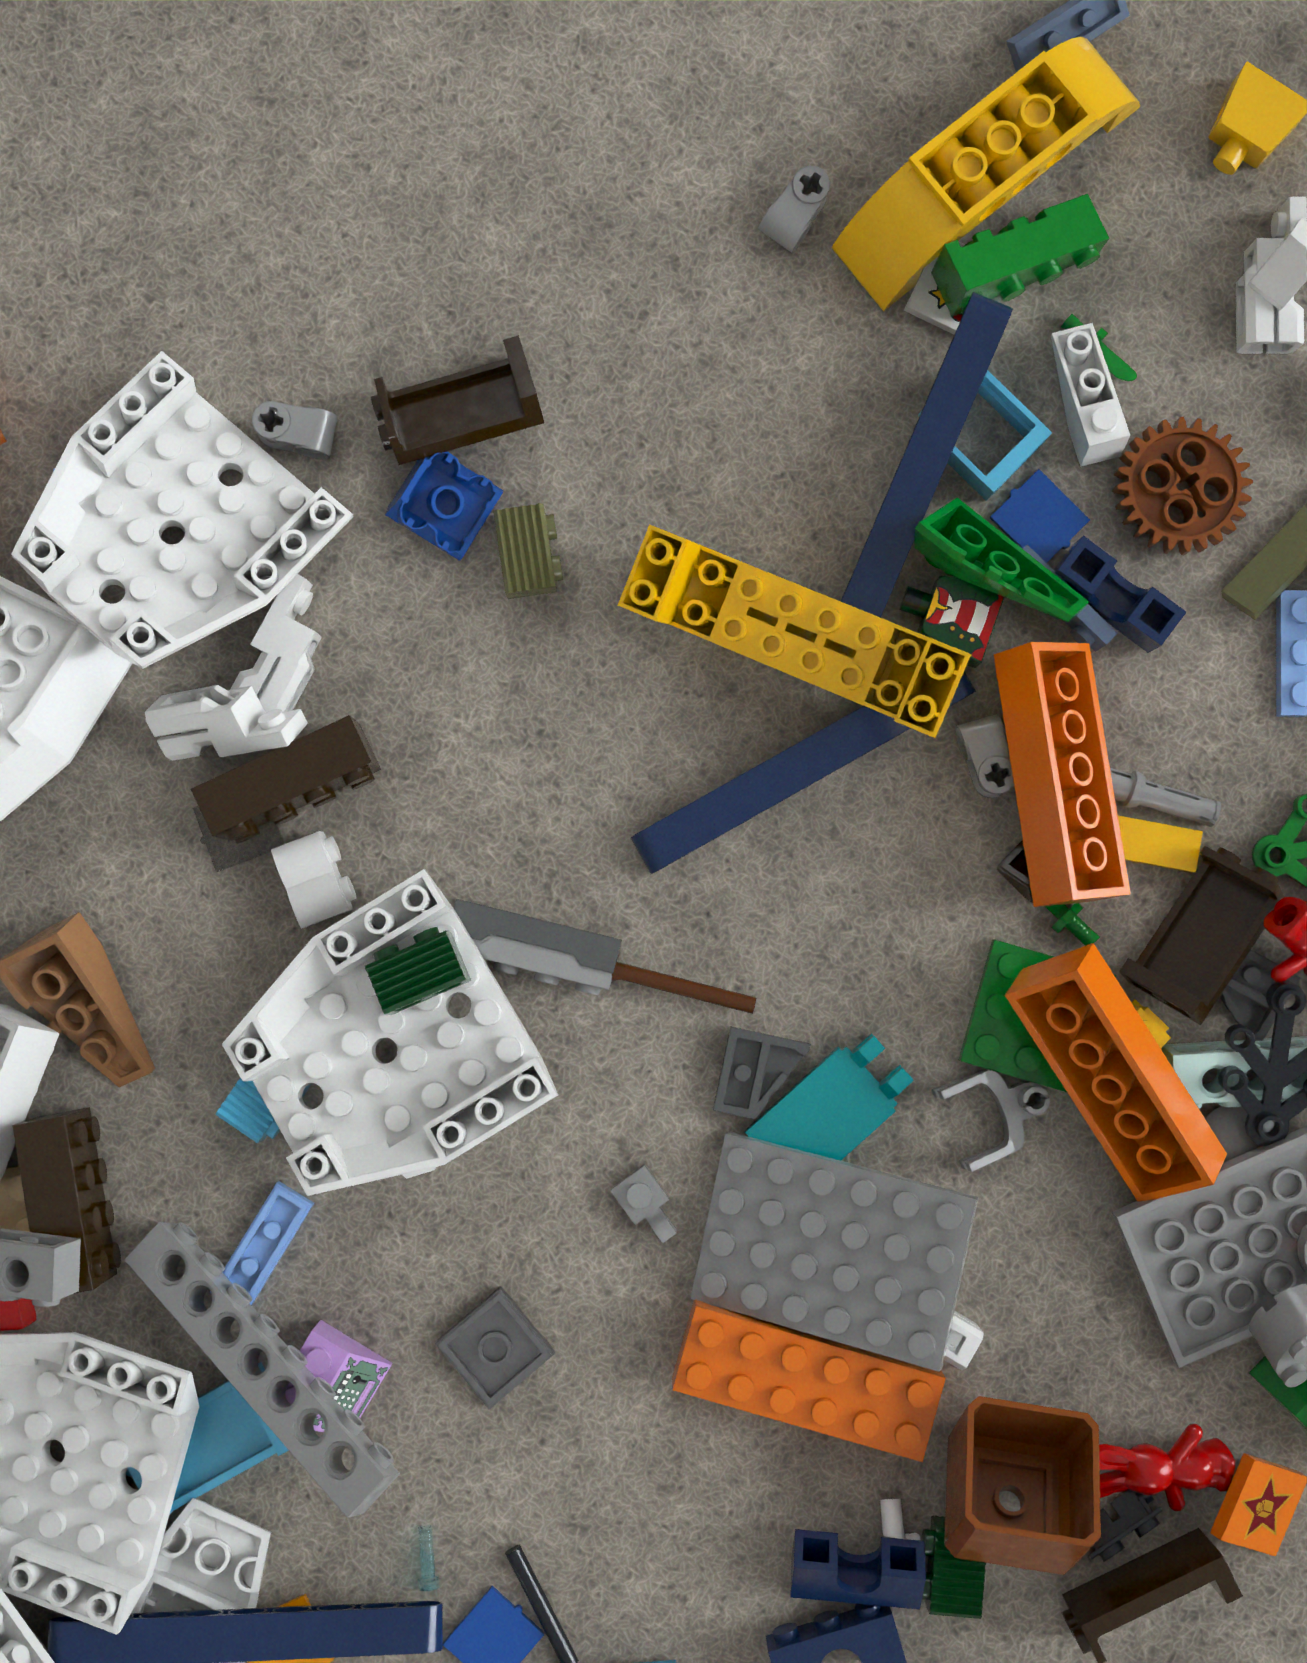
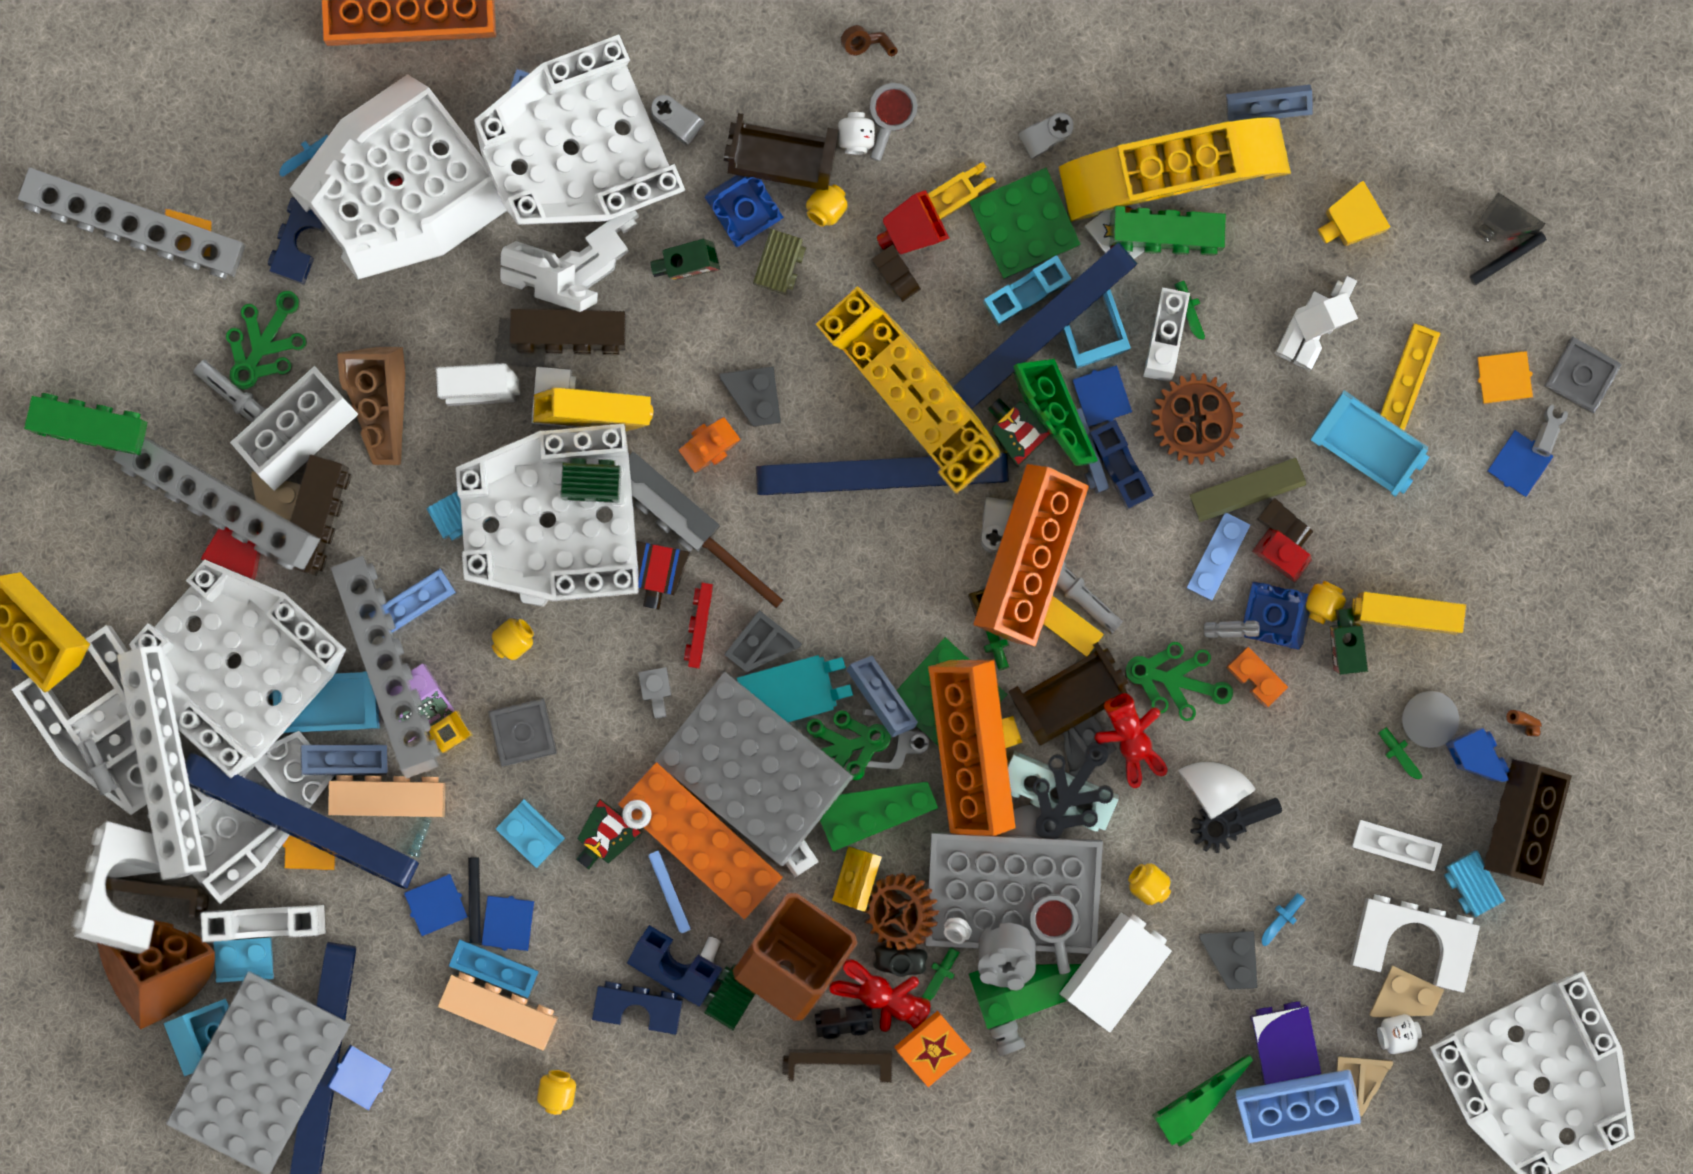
camera: 25 degrees right, 0 degrees up
(193, 915) = (477, 385): none -> white arch
(264, 1514) = (343, 759): none -> sand blue plate
(335, 1544) = (386, 798): none -> light nougat brick
(370, 870) = (591, 408): none -> yellow brick
(394, 1402) = (449, 732): none -> yellow window
(415, 597) = (698, 259): none -> dark green torso
(419, 1231) = (512, 639): none -> yellow head
(494, 205) = (863, 40): none -> reddish brown plate
(544, 331) = (856, 133): none -> white head
(552, 445) = (826, 206): none -> yellow head
(554, 839) = (709, 444): none -> orange hinge
(571, 1042) = (659, 571): none -> torso
(572, 1479) = (530, 833): none -> medium azure plate
(577, 280) = (892, 109): none -> piece
(581, 742) = (755, 394): none -> dark grey wing
(602, 1614) = (507, 923): none -> blue piece
(660, 1089) = (698, 625): none -> red plate
(675, 1434) = (605, 835): none -> torso
(680, 414) = (912, 225): none -> red torso
(689, 490) = (896, 273): none -> dark brown leg
(711, 1408) = (627, 814): none -> white plate
(712, 351) = (958, 191): none -> yellow hinge
(800, 1468) = (669, 891): none -> light blue tile
(824, 342) = (1024, 223): none -> green plate
(875, 425) = (1027, 291): none -> medium azure arch
(938, 1155) = (844, 747): none -> green plant
(954, 1062) = (882, 696): none -> sand blue plate
(1025, 1219) = (873, 811): none -> green wedge
(1042, 1325) = (856, 878): none -> yellow plate
(1137, 1361) = (916, 928): none -> dark orange gear
(1154, 1405) = (900, 962): none -> pearl dark grey piece
(1215, 1388) = (942, 970): none -> green piece
(1216, 1330) = (957, 930): none -> white plate

